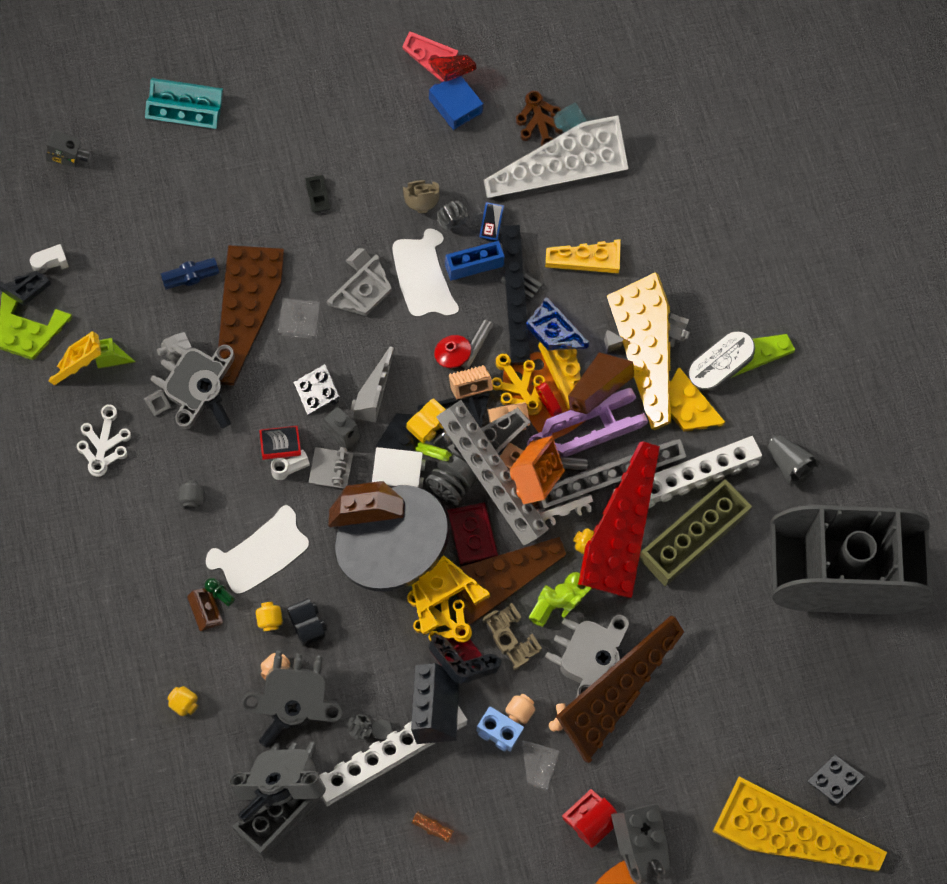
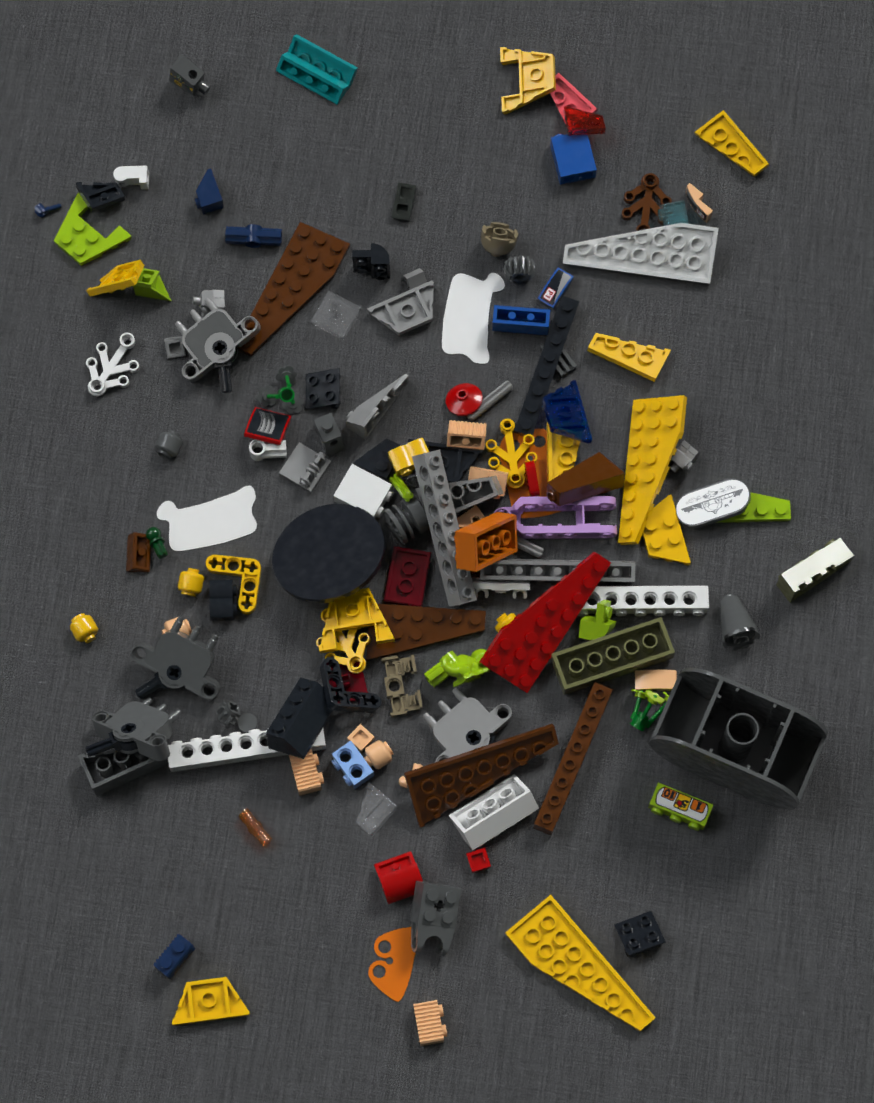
camera: 30 degrees right, 5 degrees up
(130, 250) = (208, 194): none -> dark blue slope
(287, 405) = (291, 400): none -> dark grey plant
(317, 254) = (373, 261): none -> black brick
(320, 591) = (247, 576): none -> yellow beam
(366, 504) = (320, 513): reddish brown wedge -> none
(390, 41) = (535, 77): none -> yellow wing
(459, 755) = (306, 773): none -> light nougat brick
(496, 700) = (361, 738): none -> light nougat plate
(587, 105) = (695, 199): none -> light nougat slope
(588, 39) = (731, 142): none -> yellow wing
(612, 341) = (618, 446): light grey slope -> none
(651, 720) = (494, 811): none -> white slope
(657, 772) = (478, 860): none -> red plate
(672, 510) = (598, 626): none -> lime brick
(702, 642) = (572, 759): none -> reddish brown brick
(742, 539) = (655, 680): none -> light nougat slope
(748, 582) = (641, 720): none -> green plant
(818, 647) = (680, 807): none -> brick
(837, 387) = (814, 569): none -> wedge

